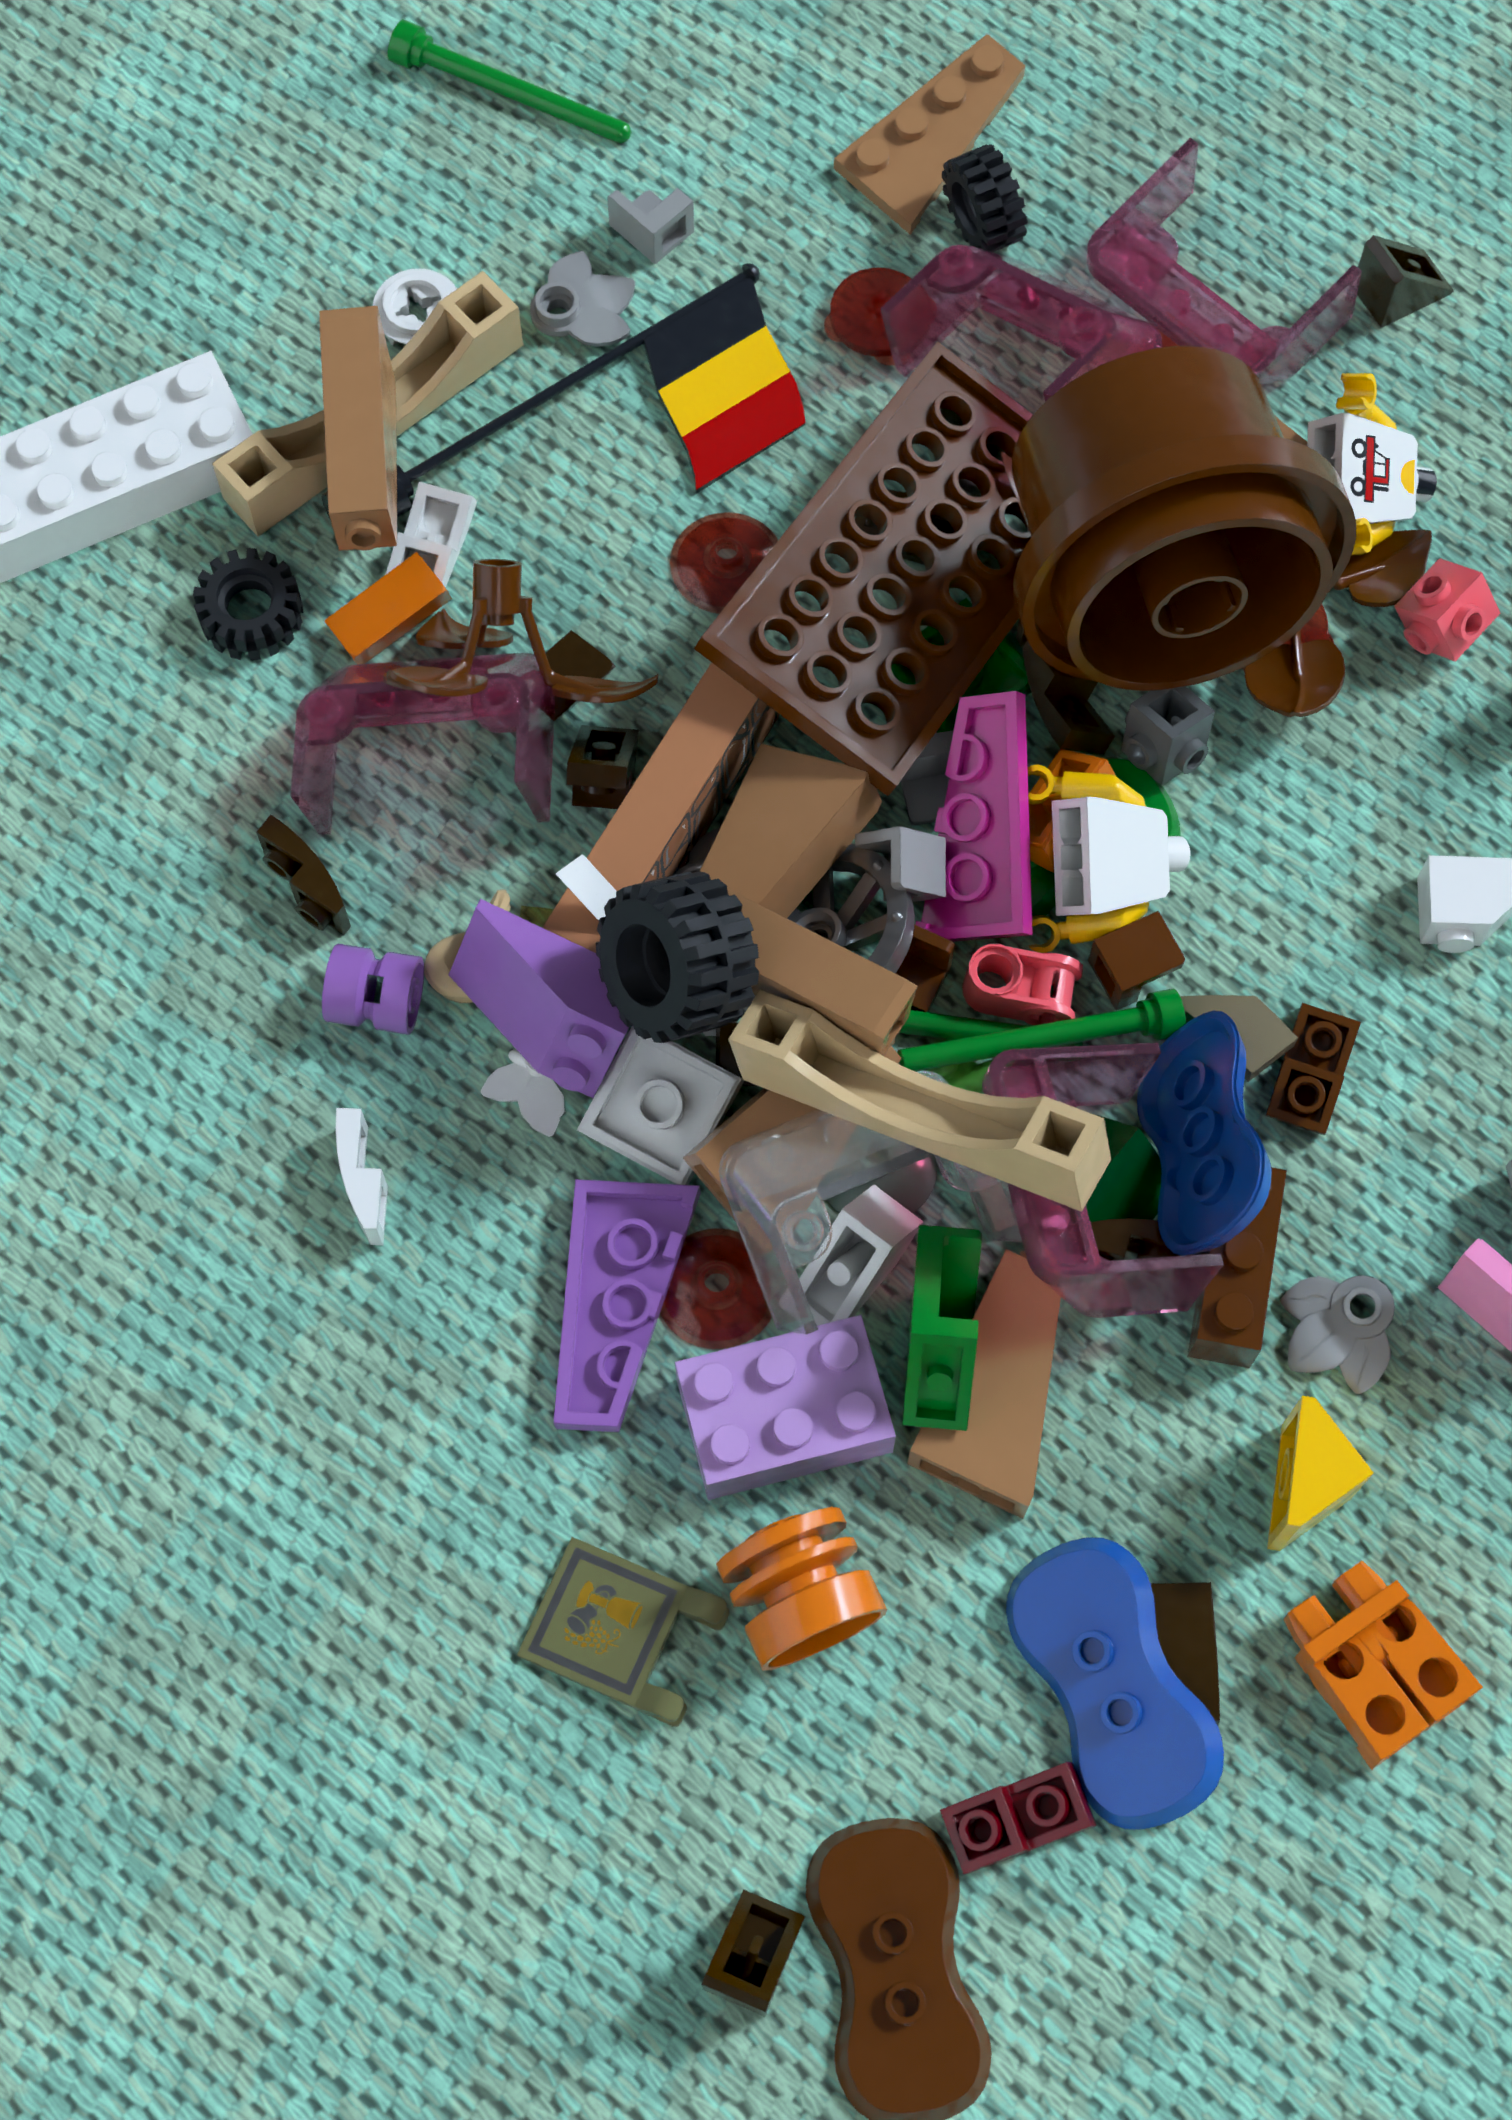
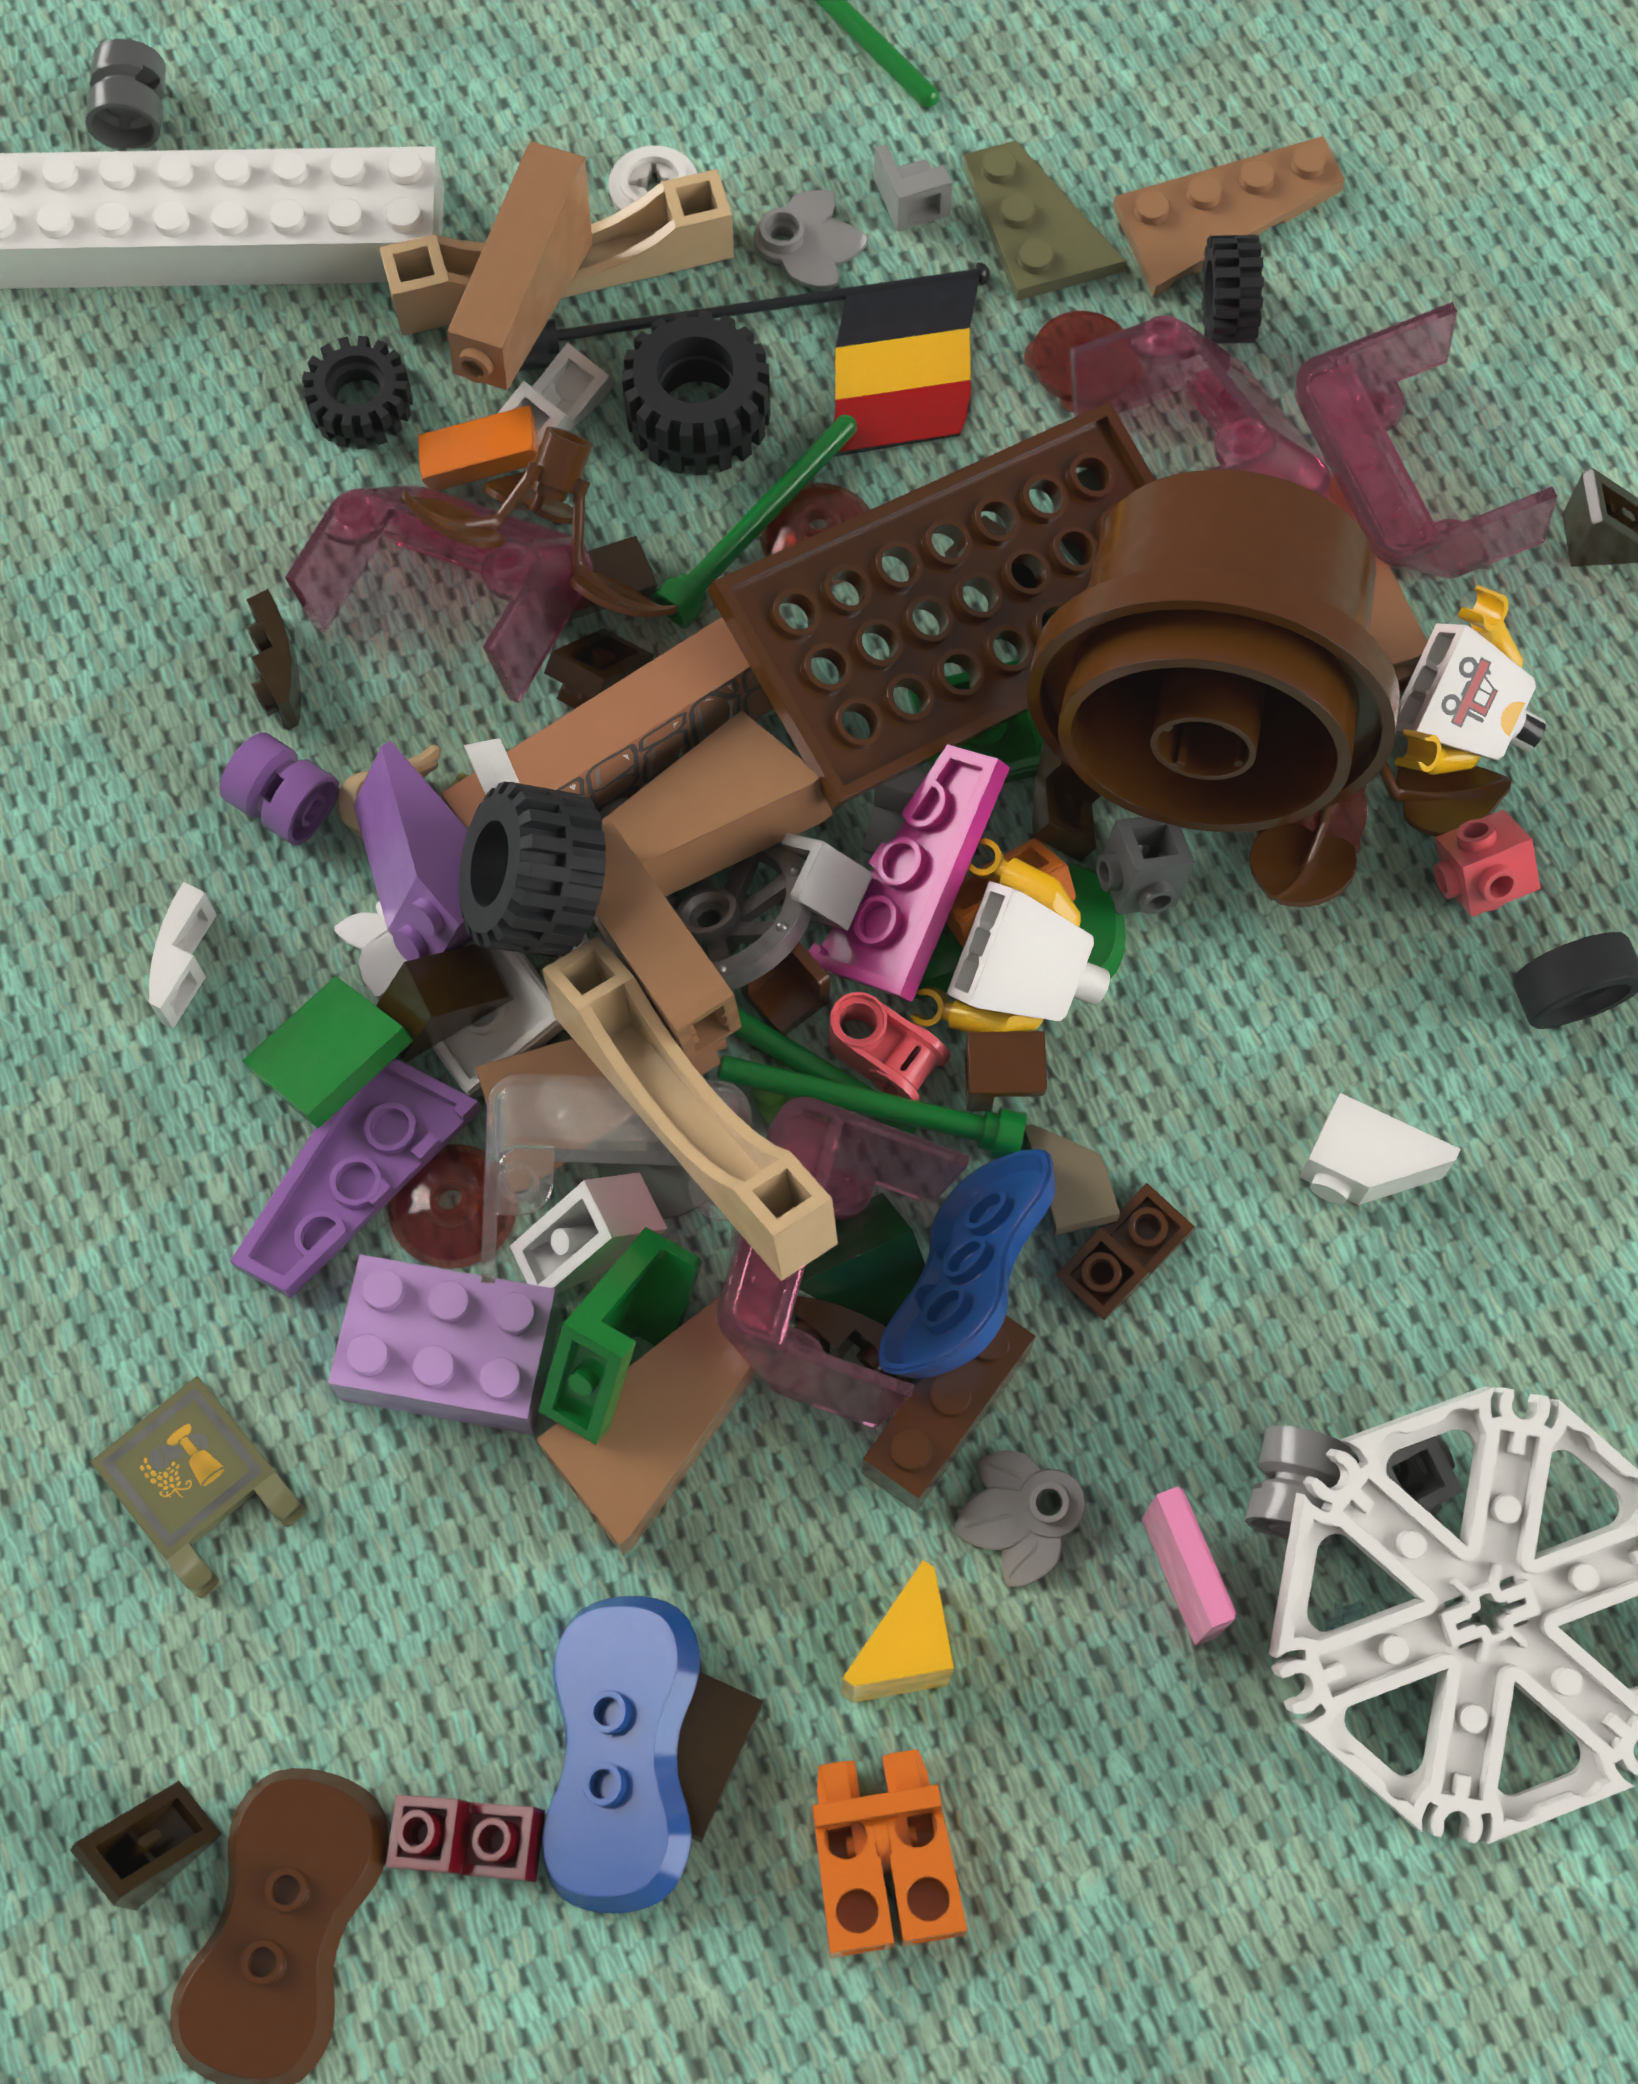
camera: 25 degrees right, 0 degrees up
(542, 1201) = (327, 1051): none -> green tile
(569, 518) = (701, 431): none -> black tyre
(620, 1111) = (443, 995): none -> dark brown slope
(643, 659) = (690, 589): none -> green piece
(775, 211) = (1034, 225): none -> olive wing
(795, 1575) = (365, 1511): orange wheel -> none

